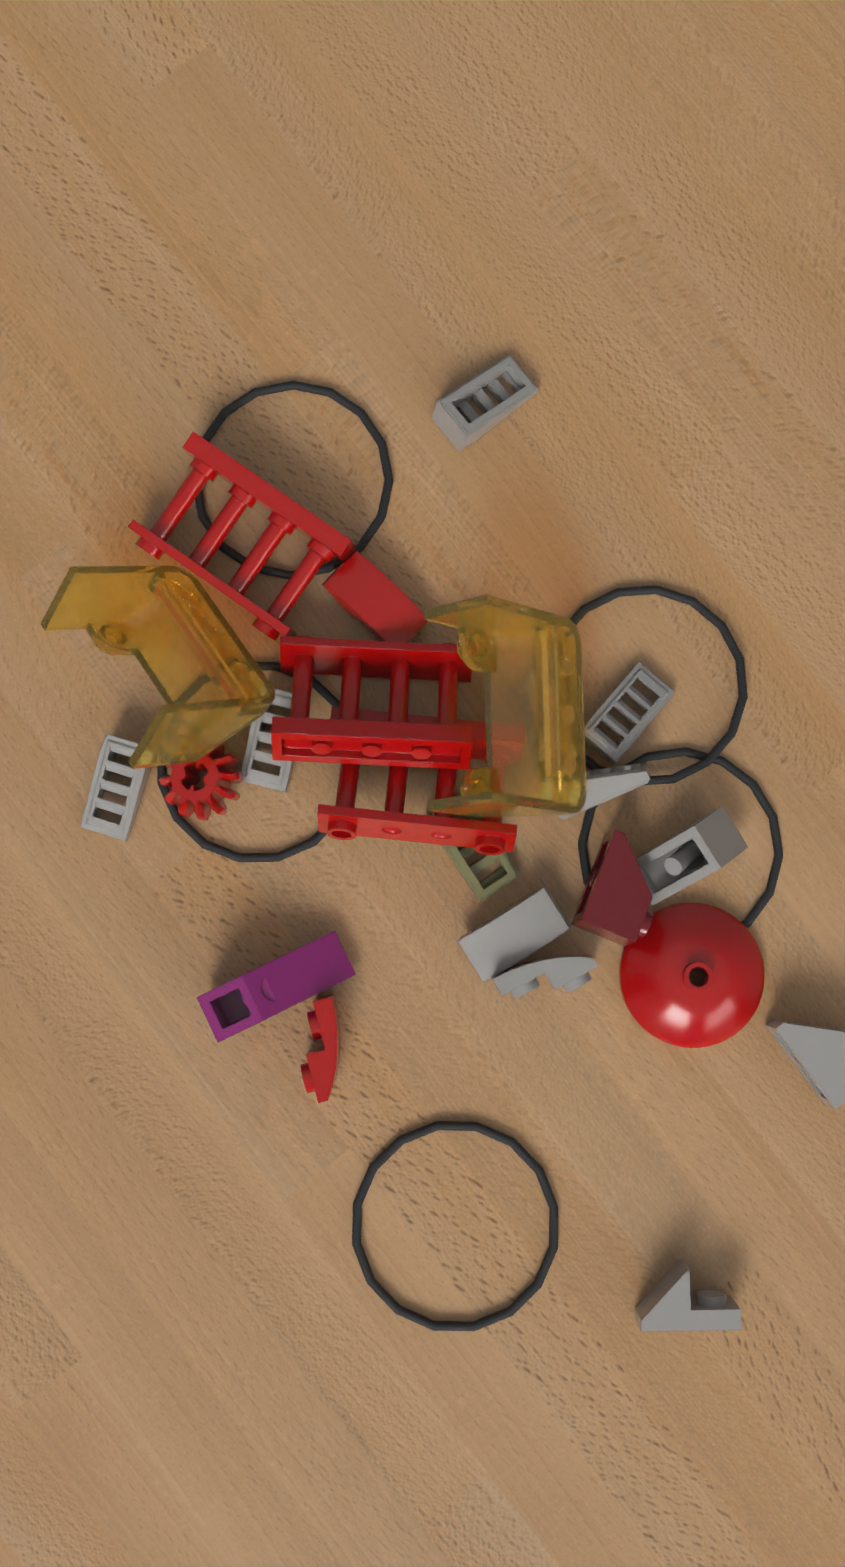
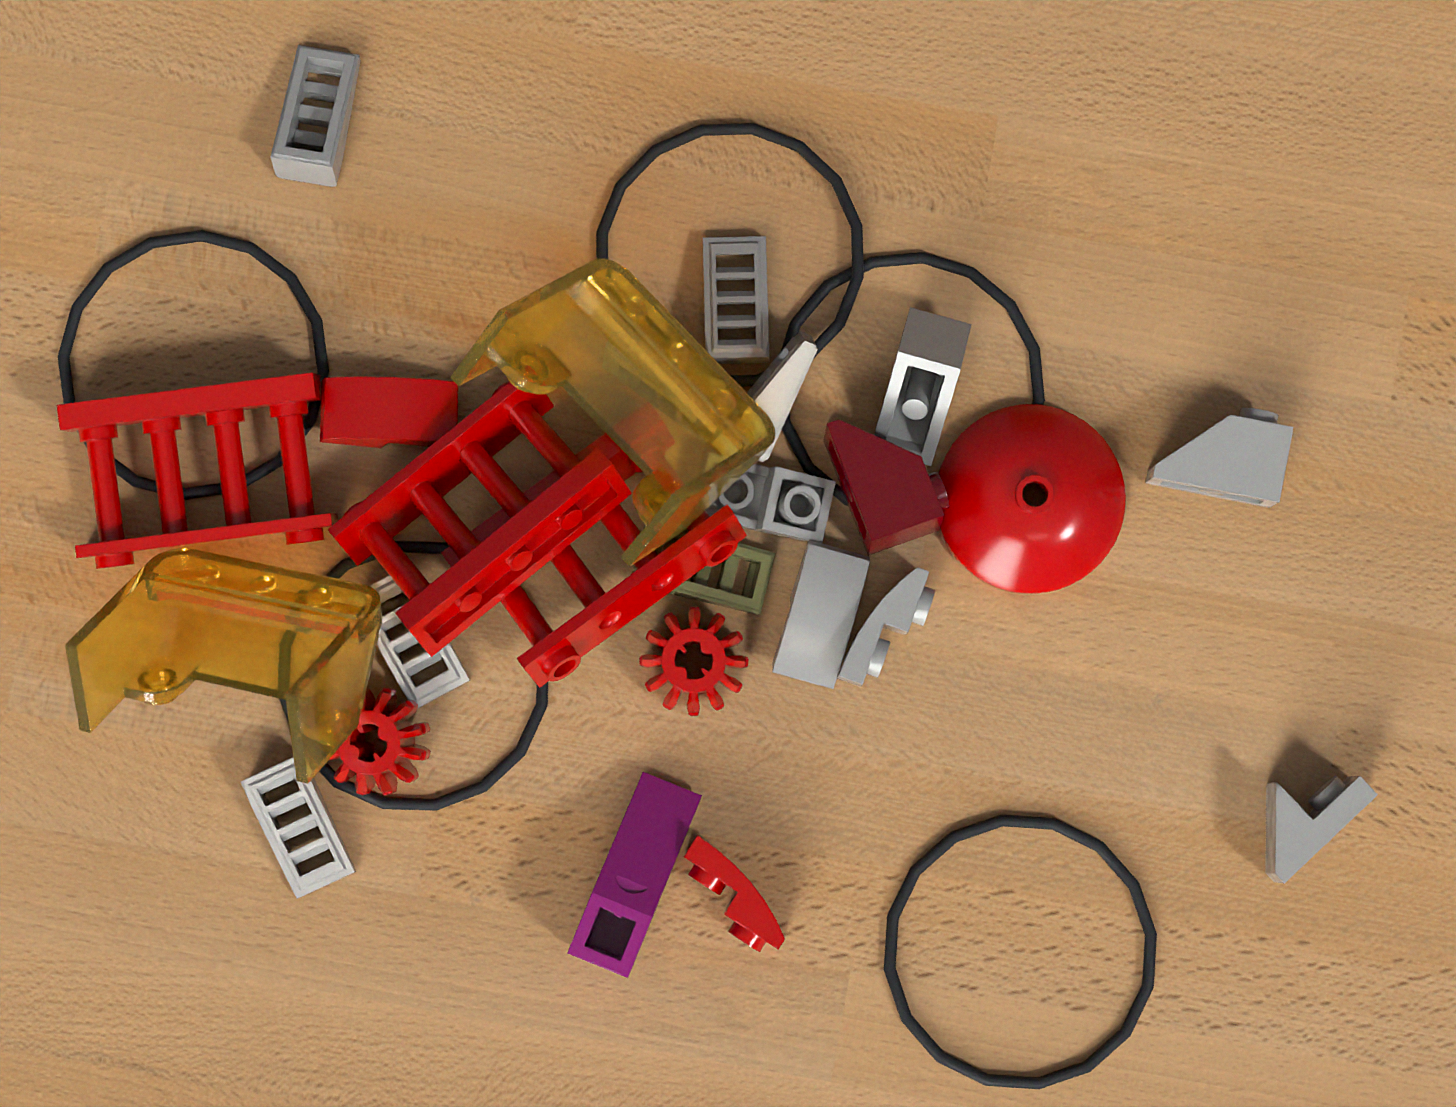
camera: 45 degrees left, 0 degrees up
(402, 895) = (709, 646): none -> red gear
(548, 849) = (779, 502): none -> light grey slope

